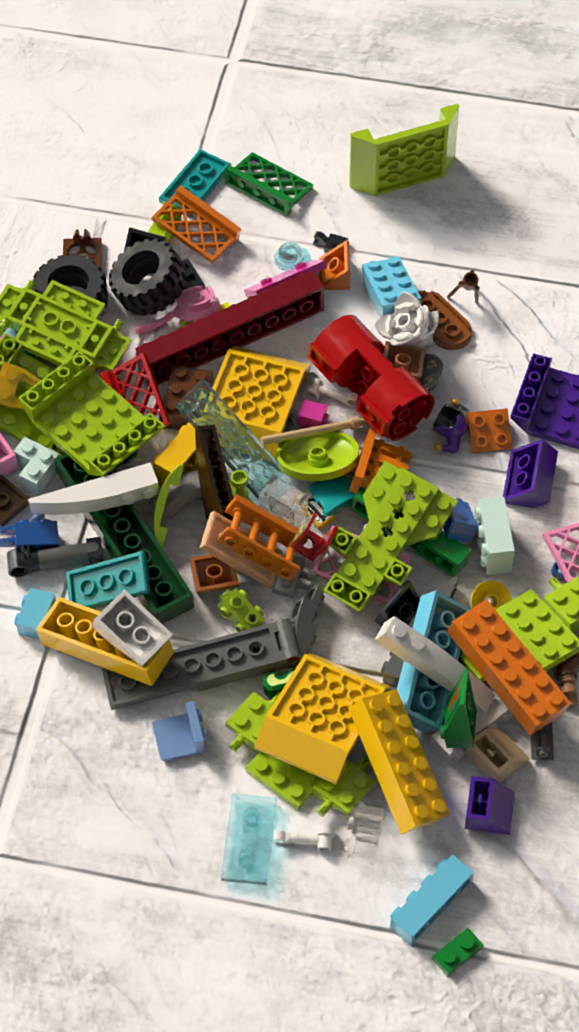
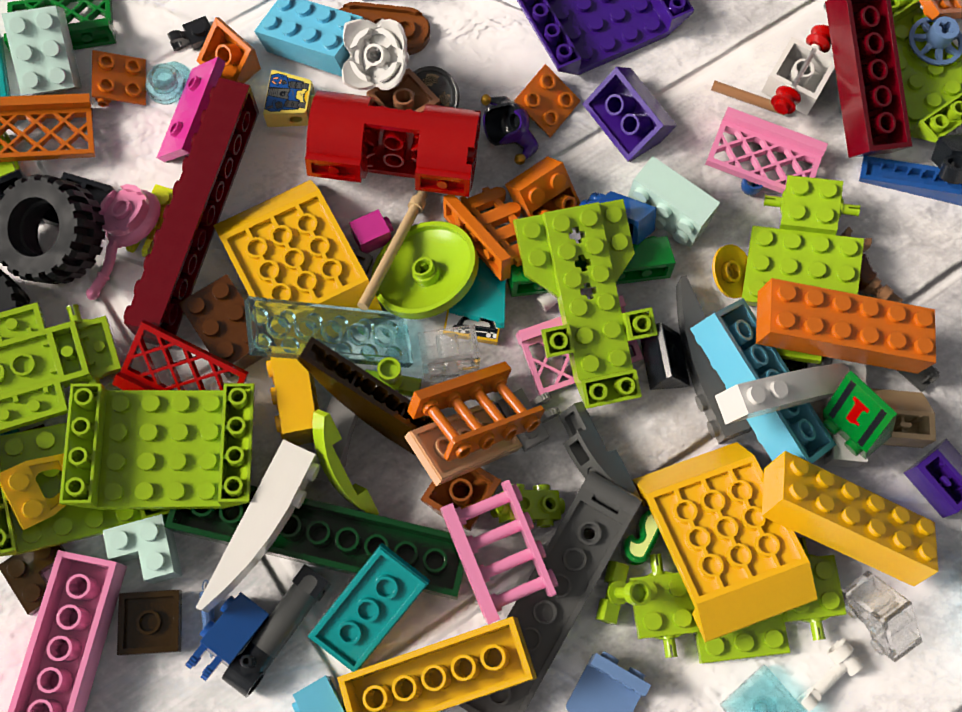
camera: 50 degrees left, 15 degrees up
(131, 628) = (470, 649): white slope -> none
(184, 591) = (468, 546): none -> bright pink fence
(239, 189) = (41, 50): none -> light aqua brick
(239, 692) = (618, 593): none -> lime bar
(266, 234) = (118, 78): none -> orange hinge
(316, 389) = (342, 202): white brick -> none
(319, 544) = (524, 368): red piece -> none
(340, 307) = (288, 100): none -> torso
(433, 469) = (543, 188): none -> orange slope

